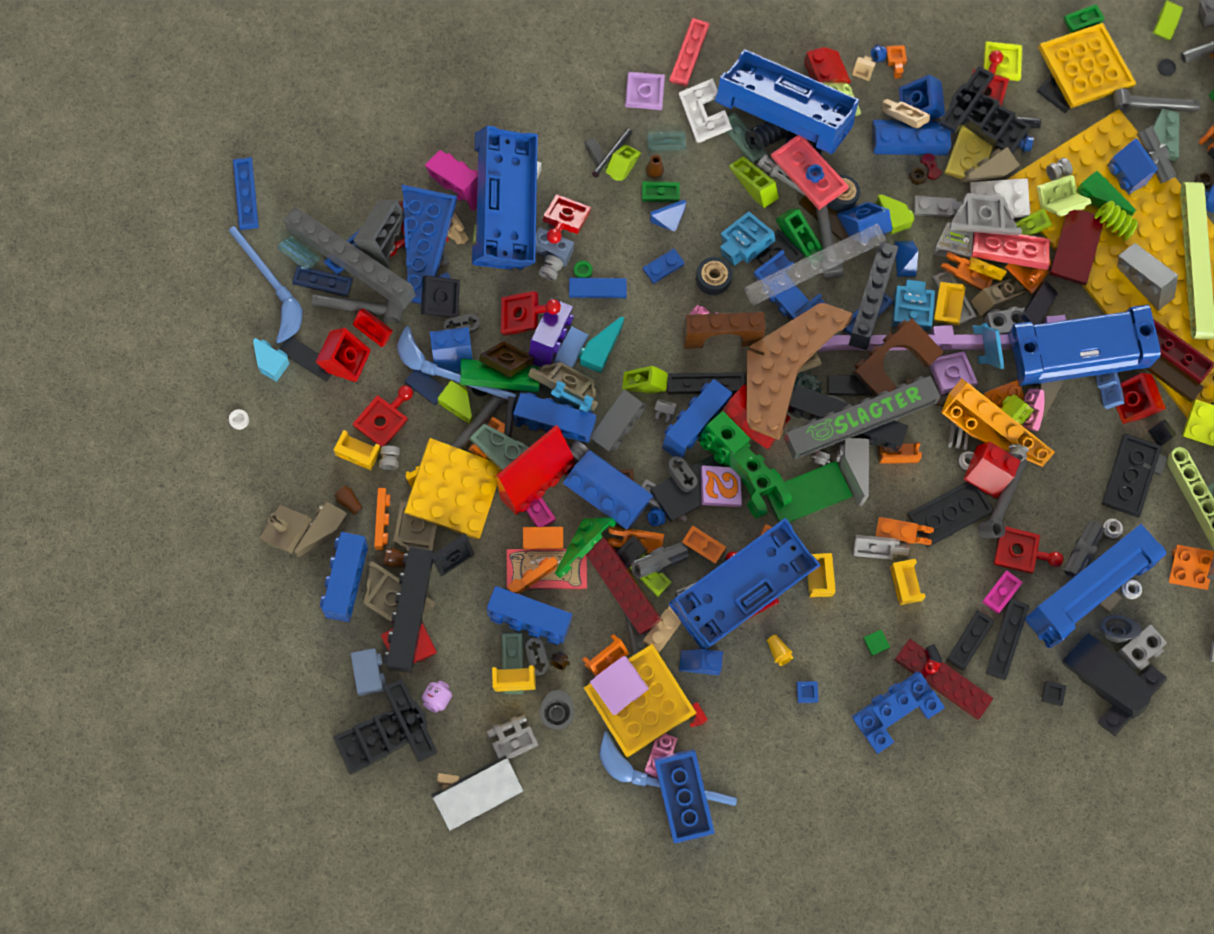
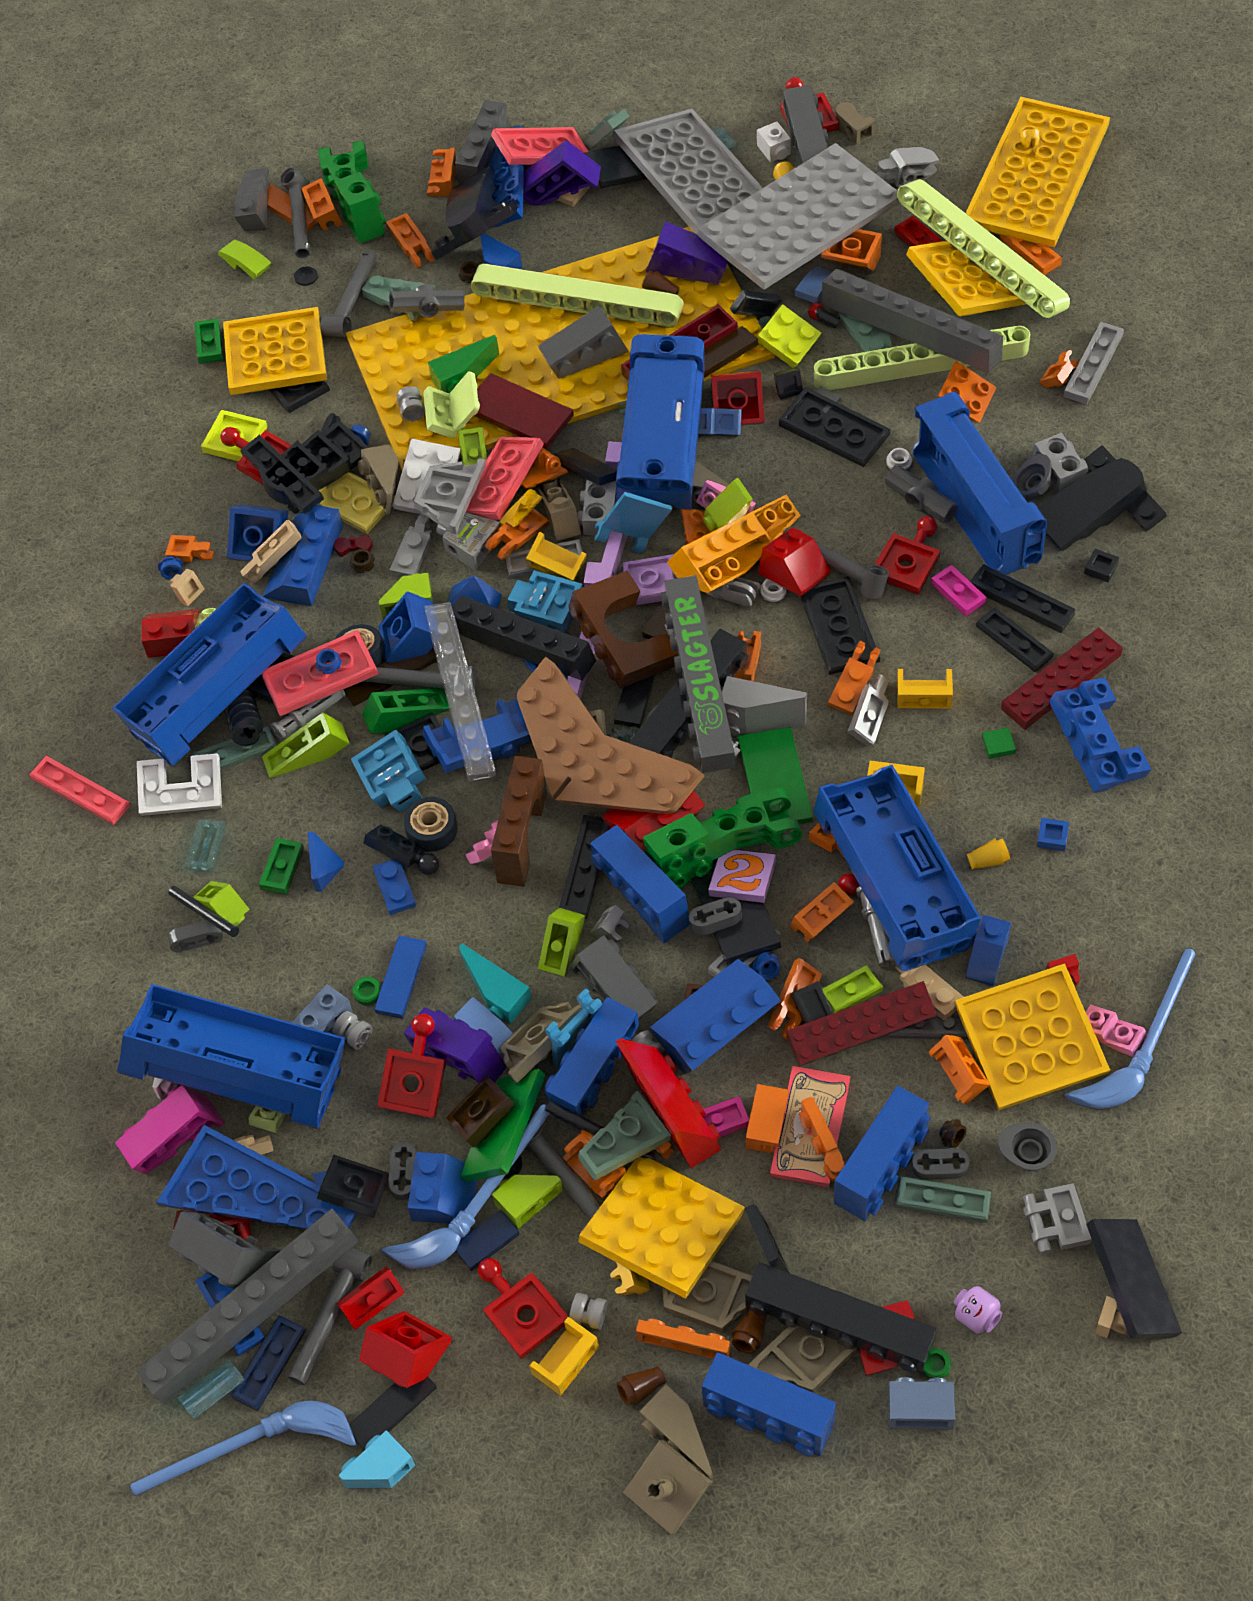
camera: 65 degrees left, 15 degrees down
(238, 419) = (463, 1534): white tile -> none
(245, 193) = (79, 1456): blue tile -> none
(387, 732) = (1022, 1391): black slope -> none
(397, 675) = (938, 1364): none -> green tile
(514, 679) = (972, 1192): yellow panel -> none
(556, 217) = (291, 986): plate -> none
(583, 541) = (778, 1057): green wing -> none
(619, 685) = (1008, 1053): lavender slope -> none
(644, 91) = (117, 857): lavender tile -> none
(655, 167) = (241, 863): reddish brown cone -> none
(659, 560) = (835, 968): dark grey piece -> none
(684, 796) = (1180, 1002): blue brick -> none
(690, 261) = (401, 849): none -> black plate
(934, 661) = (1040, 676): arm -> none
(1018, 451) = (779, 526): light grey plate -> none
(1117, 218) = (501, 357): lime piece -> none
(1132, 167) = (435, 325): blue slope -> none

